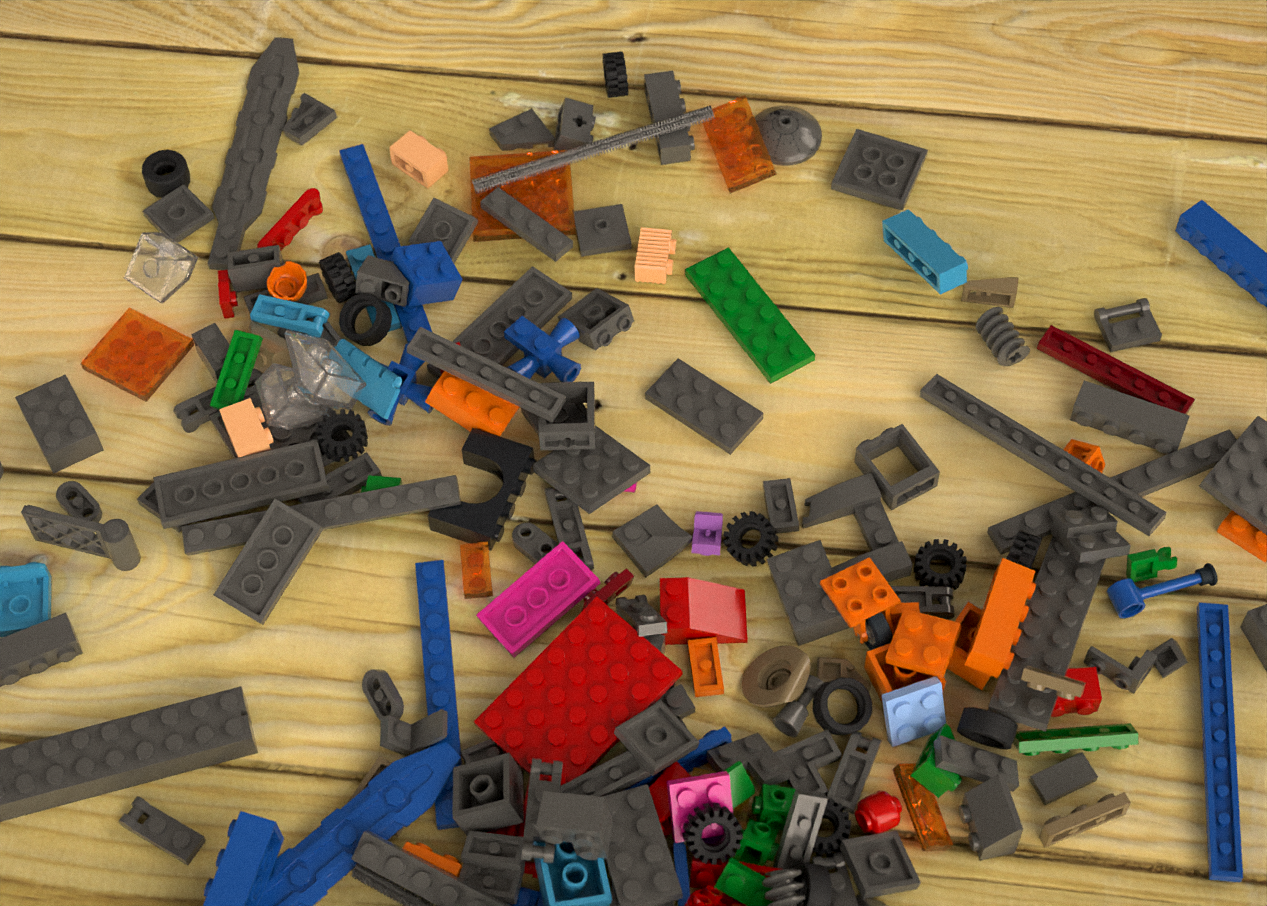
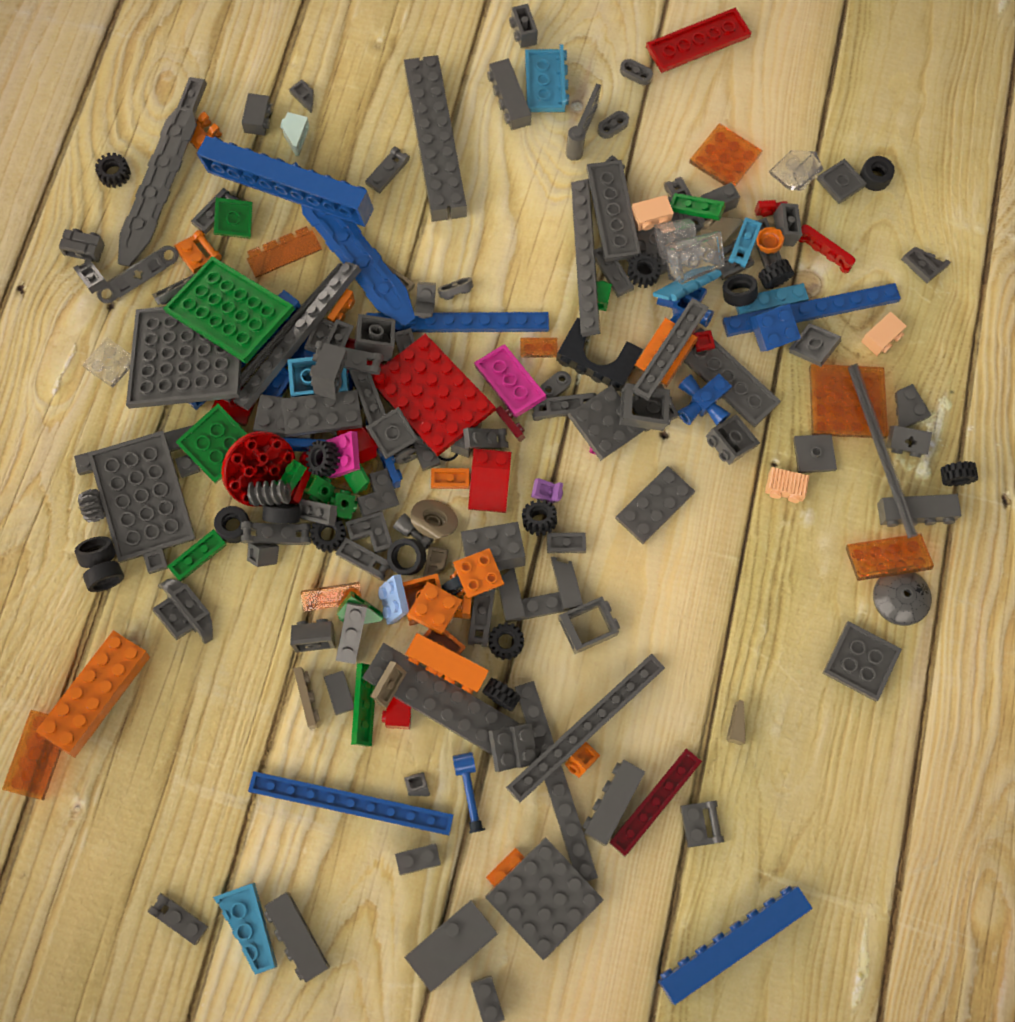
camera: 90 degrees right, 15 degrees up
(59, 423) = (673, 111): dark grey brick -> none
(254, 148) = (903, 230): dark grey plate -> none
(268, 561) = (554, 224): dark grey plate -> none
(382, 280) = (768, 296): dark grey slope -> none
(526, 224) = (817, 399): dark grey plate -> none
(651, 540) = (550, 457): dark grey plate -> none
(749, 315) = (732, 546): green plate -> none
(878, 812) = (330, 567): red head -> none
(879, 864) = (295, 562): dark grey plate -> none
(925, 251) = (773, 676): dark azure brick -> none
(987, 728) = (372, 642): black tyre -> none
(1001, 337) = (693, 720): dark grey piece -> none
(1123, 677) = (409, 759): dark grey bracket -> none
(1147, 563) = (489, 785): green plate -> none

